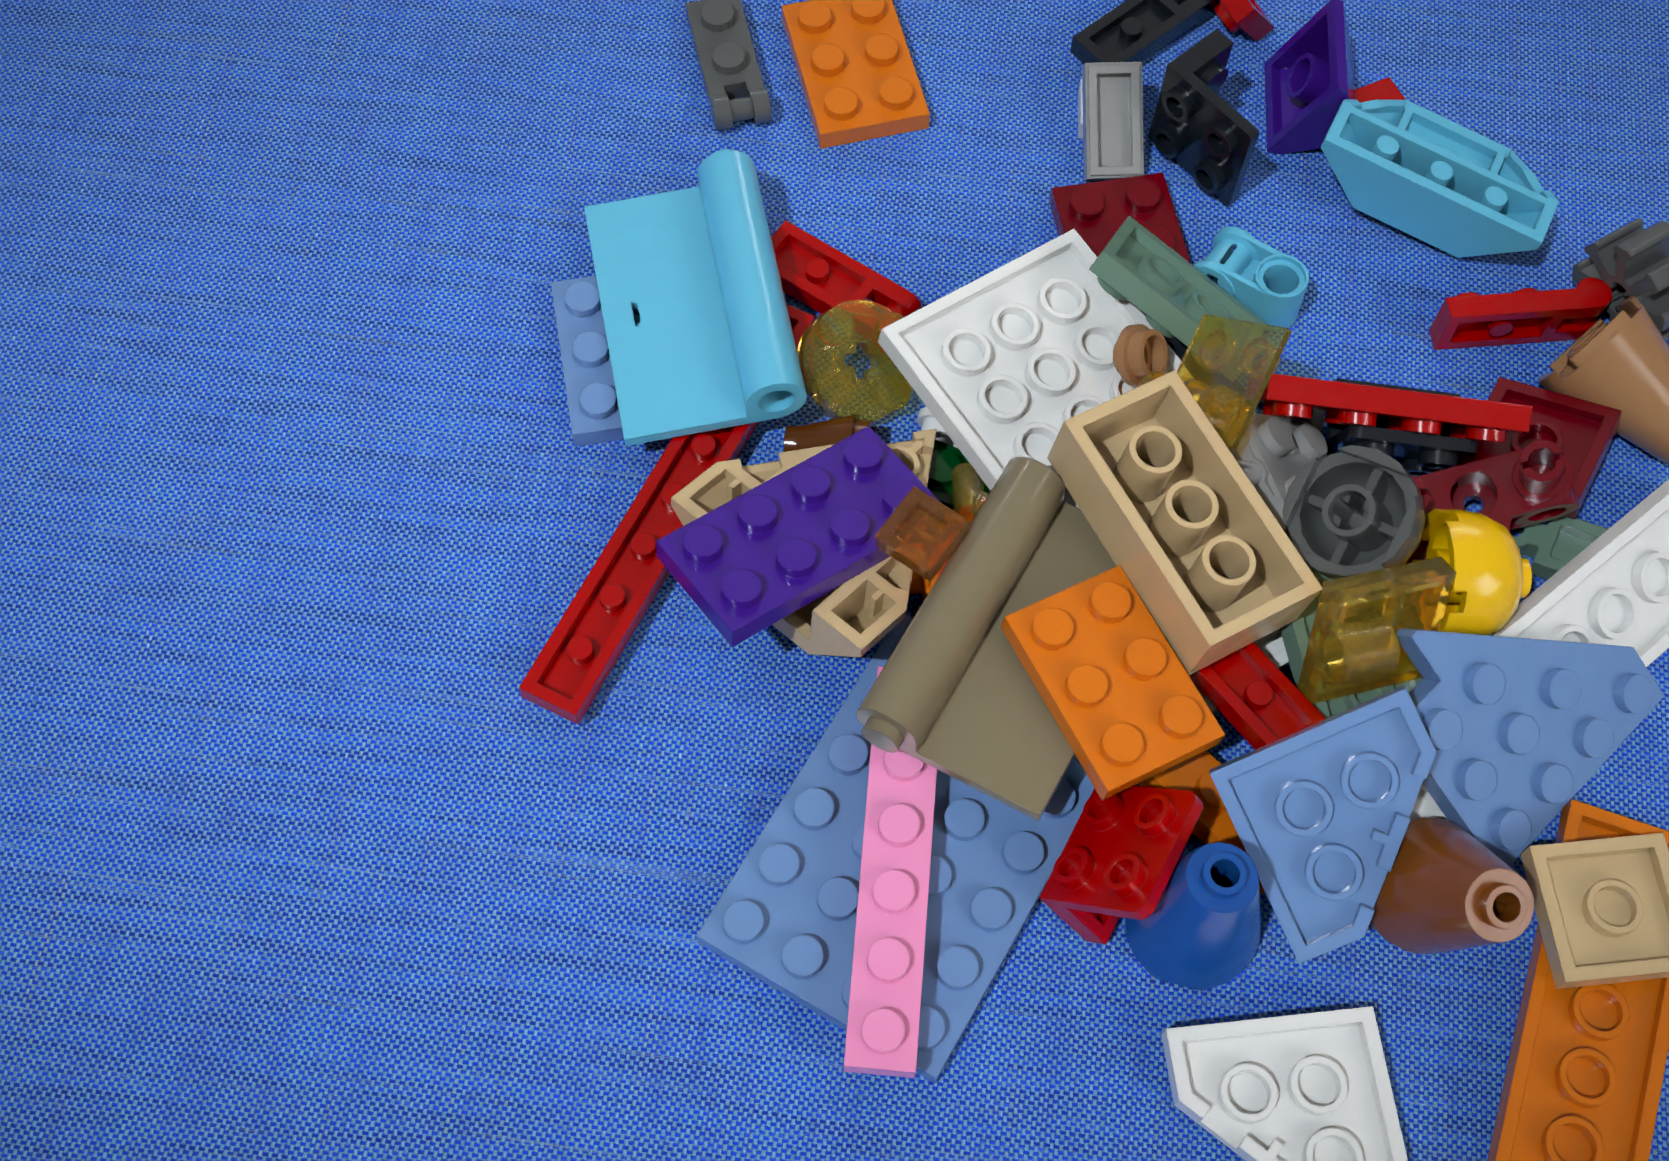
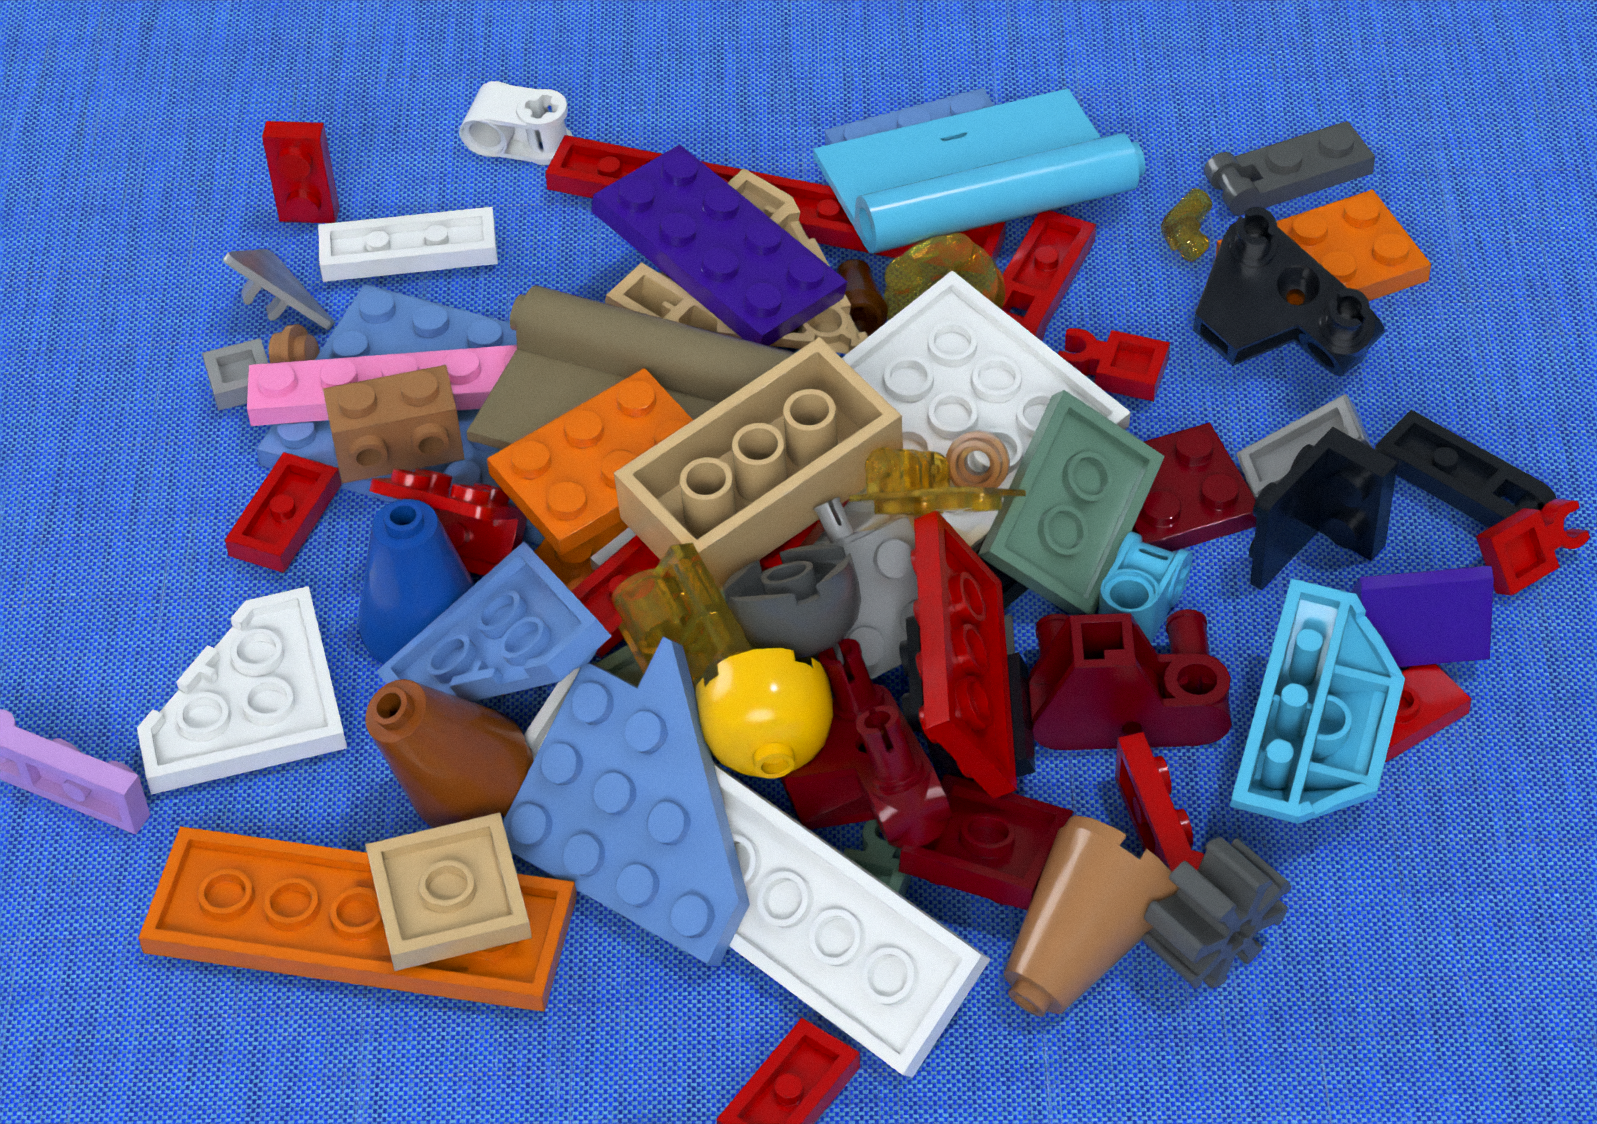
camera: 85 degrees right, 15 degrees down
(468, 747) = (513, 121): none -> white piece
(530, 982) = (301, 172): none -> red plate
(641, 883) = (407, 244): none -> white plate
(679, 1038) = (270, 273): none -> light grey piece
(790, 159) = (1182, 225): none -> clear yellow arm
(798, 1022) = (292, 345): none -> medium nougat plate
(814, 1091) = (229, 371): none -> light grey plate
(922, 533) = (716, 301): clear orange tile -> none
(933, 95) = (1248, 309): none -> black piece
(963, 239) = (1121, 365): none -> red plate
(983, 903) = (394, 423): none -> medium nougat brick
(1038, 1053) = (283, 512): none -> red plate
(1385, 306) = (1108, 682): none -> dark red piece

